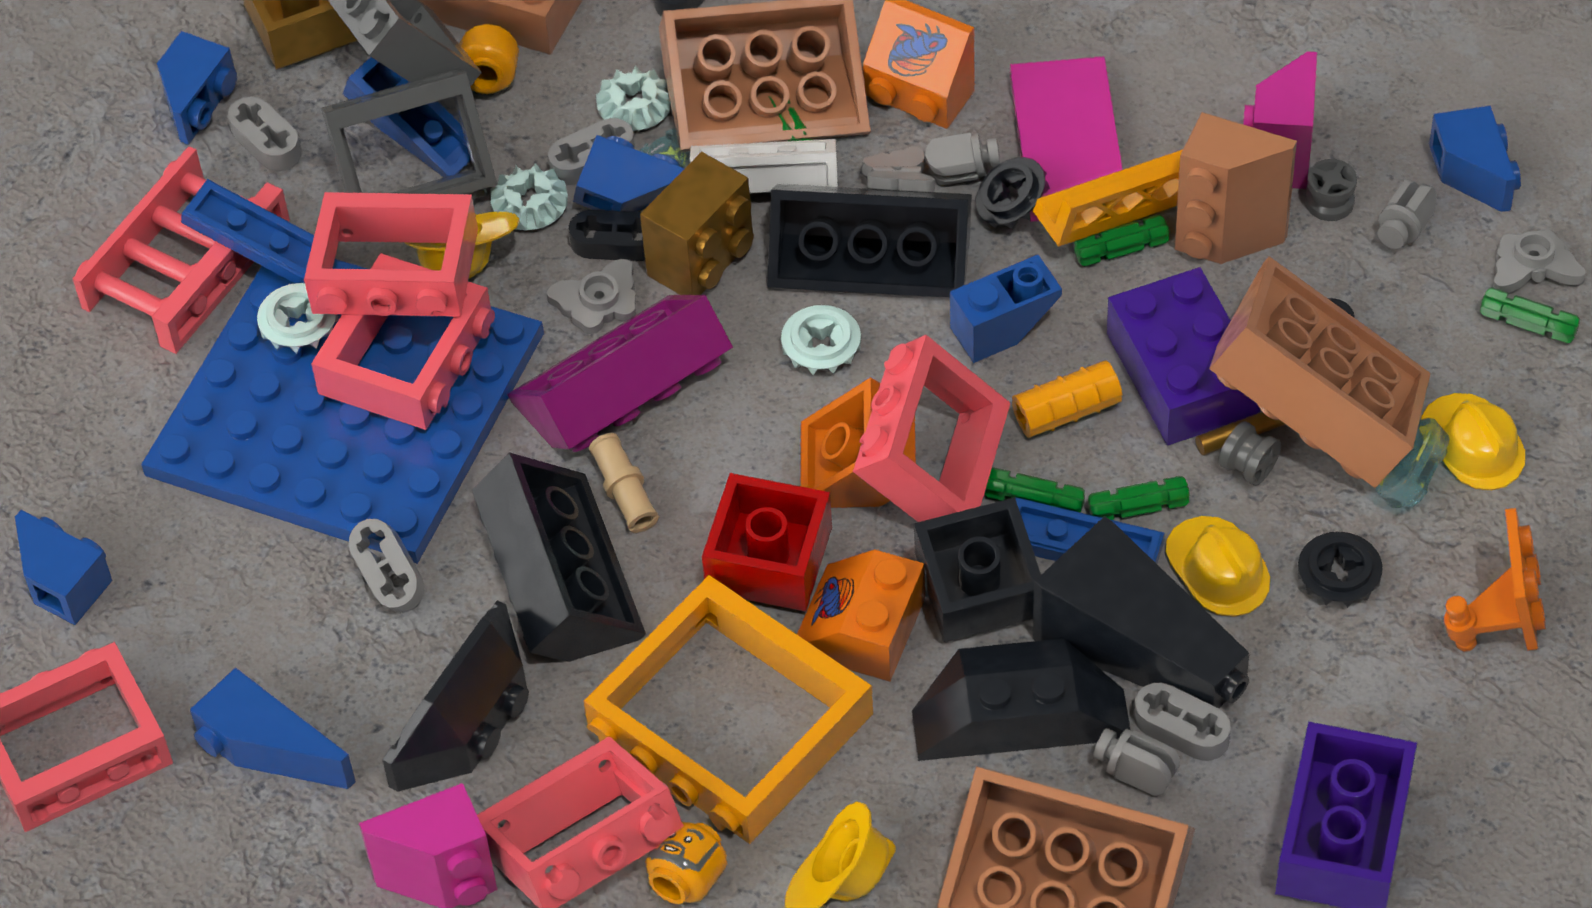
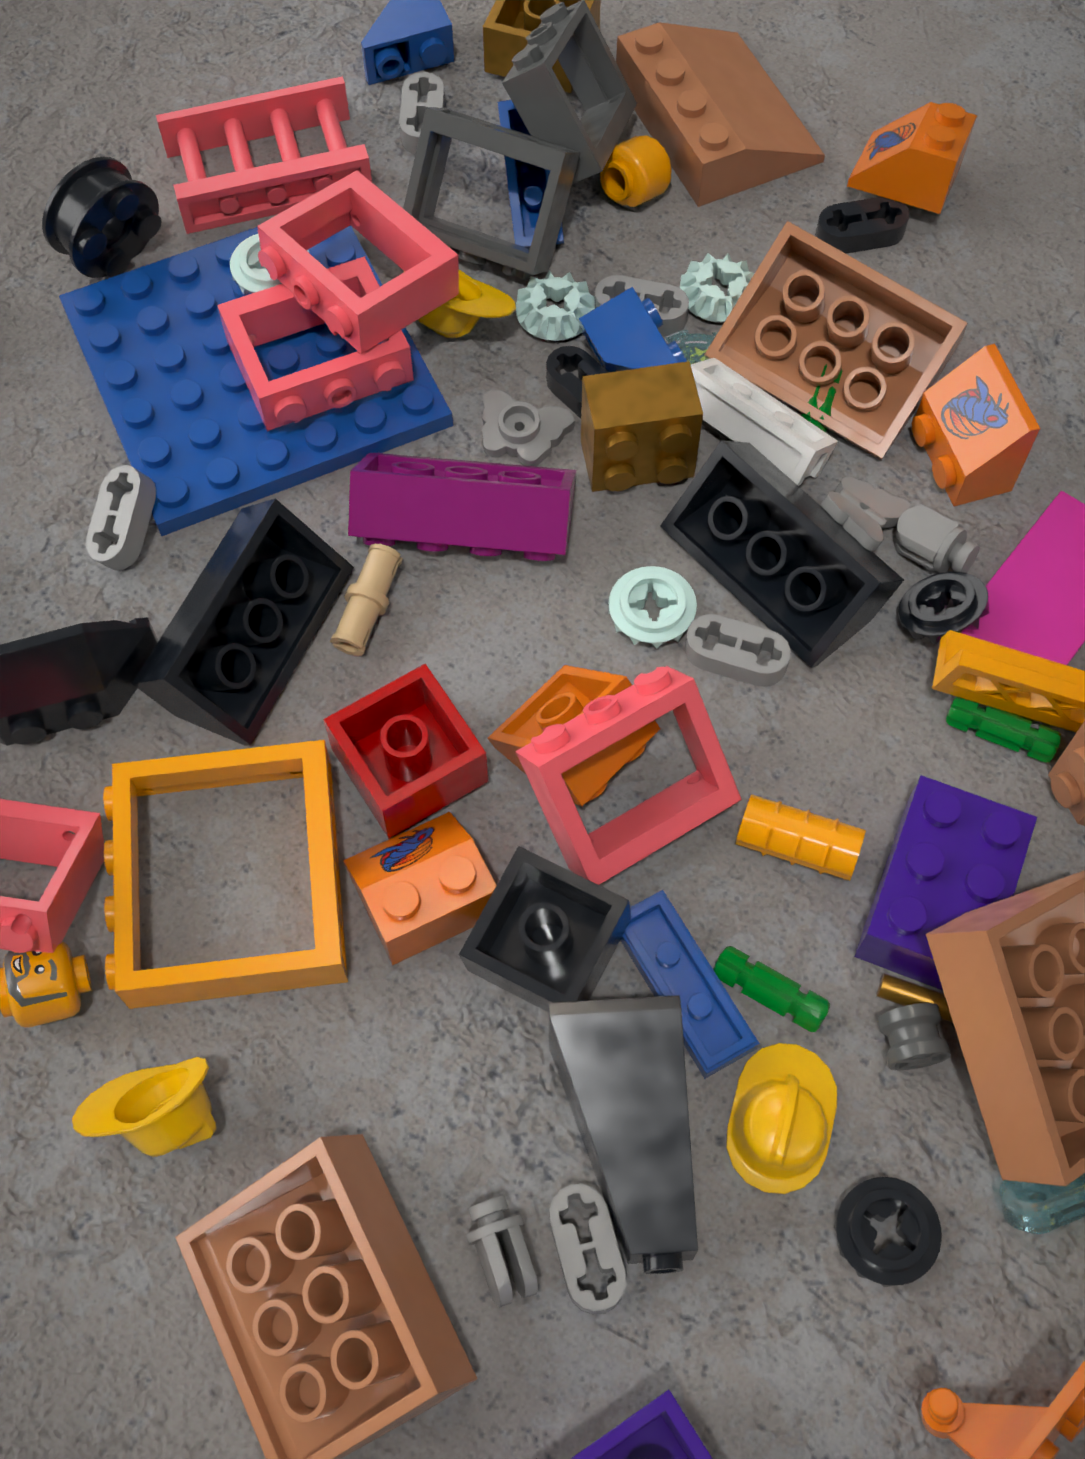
camera: 40 degrees right, 10 degrees up
(127, 379) = (100, 217): none -> black wheel
(249, 230) = (304, 161): blue tile -> none
(904, 321) = (737, 650): none -> light grey beam
(1002, 307) = (828, 704): blue slope -> none
(1017, 701) = (470, 1091): black wedge -> none
(1034, 489) = (687, 899): green axle -> none

